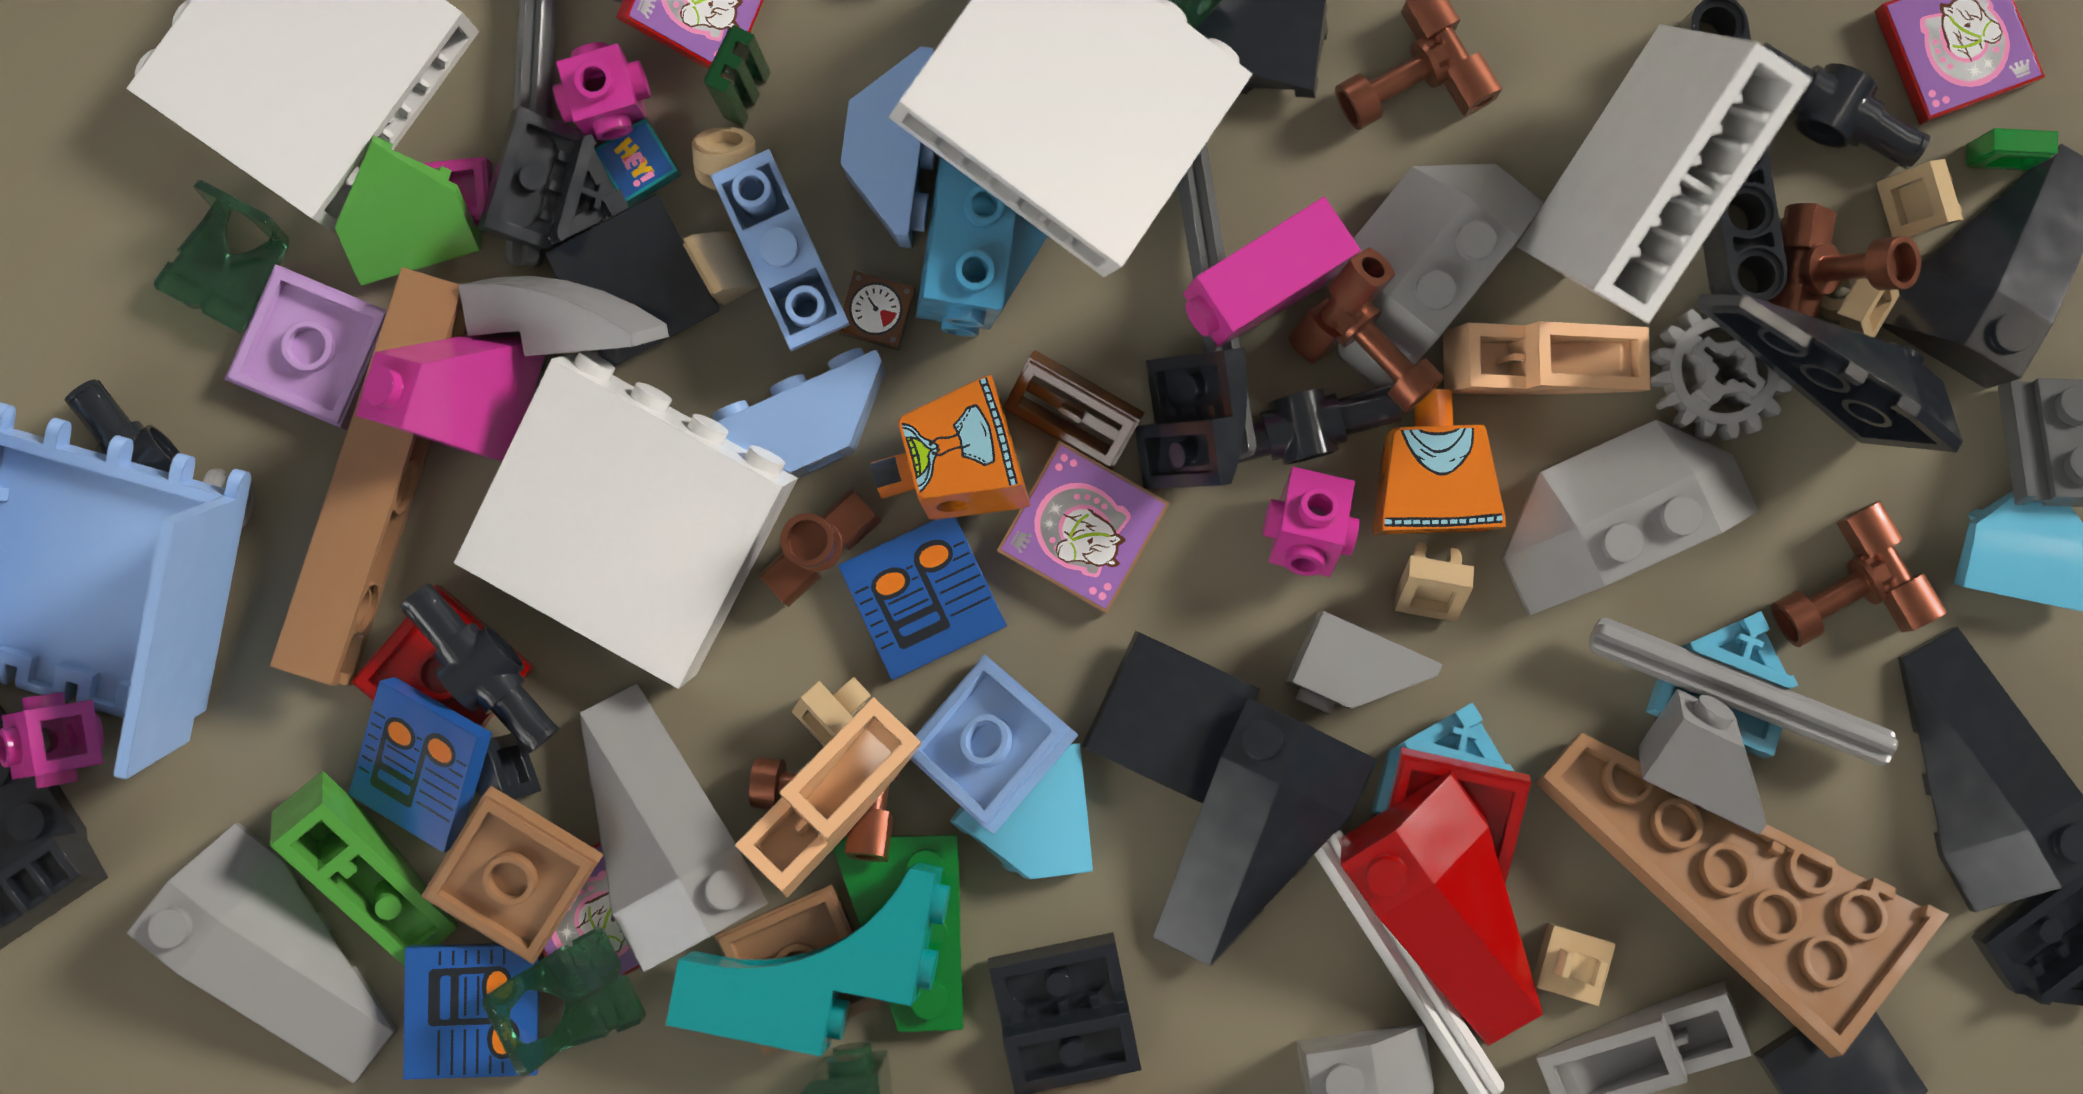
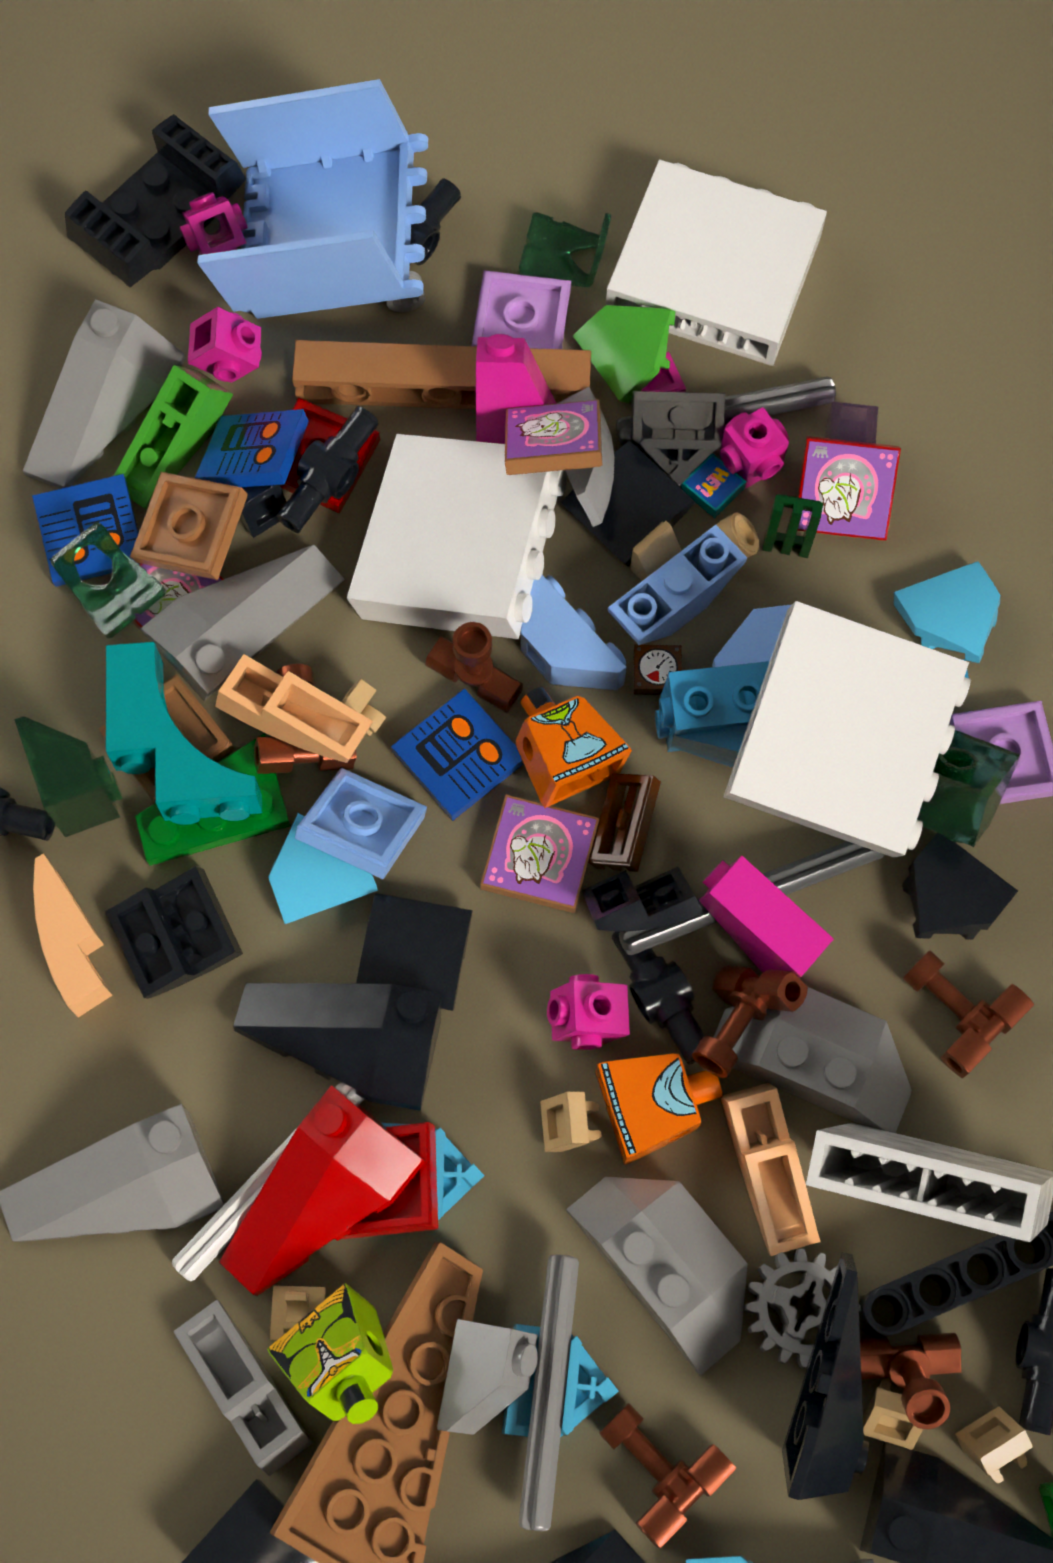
camera: 75 degrees right, 15 degrees down
(246, 766) = (224, 345): none -> dark pink brick
(537, 353) = (553, 437): none -> tile
(1352, 665) = (487, 1074): light grey slope -> none
(1659, 933) = (337, 1356): none -> lime torso

